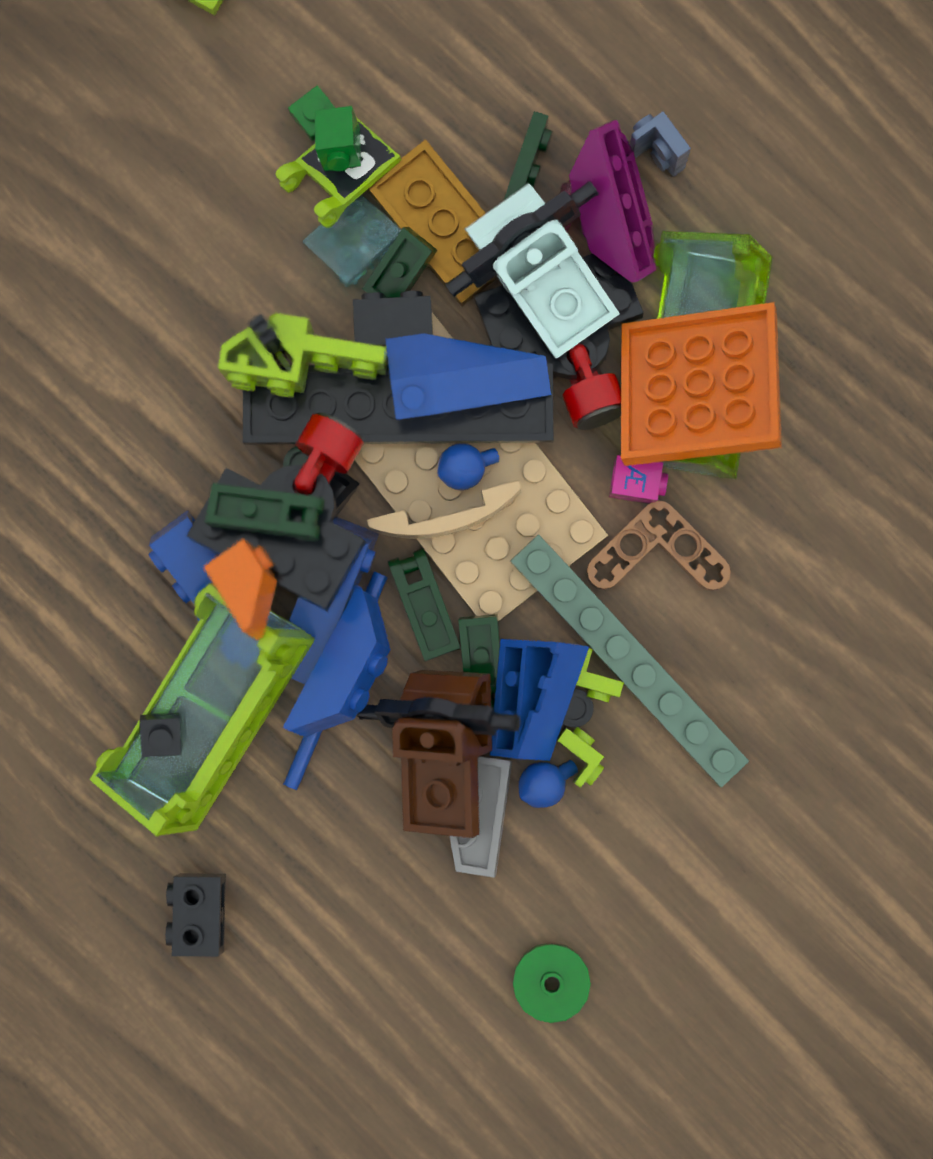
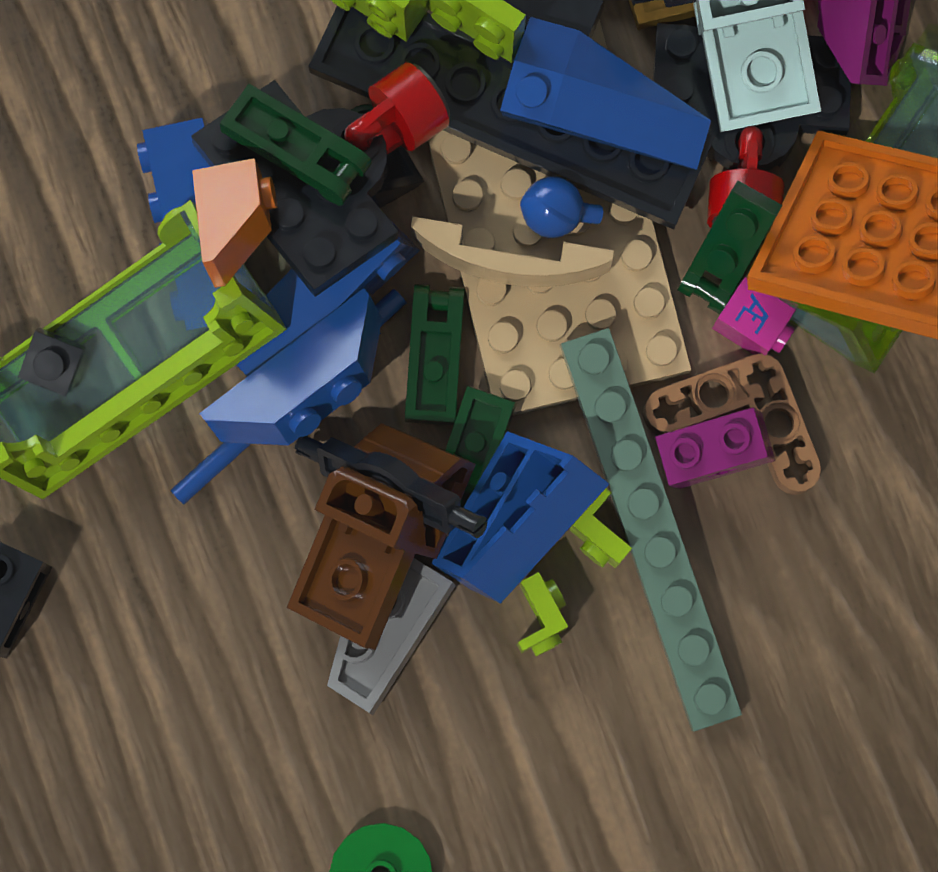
camera: 20 degrees right, 5 degrees down
(545, 783) = (482, 629): blue piece -> none
(579, 709) = (562, 560): black plate -> none
(598, 438) = (730, 245): none -> dark green plate
(650, 586) = (715, 448): none -> magenta brick

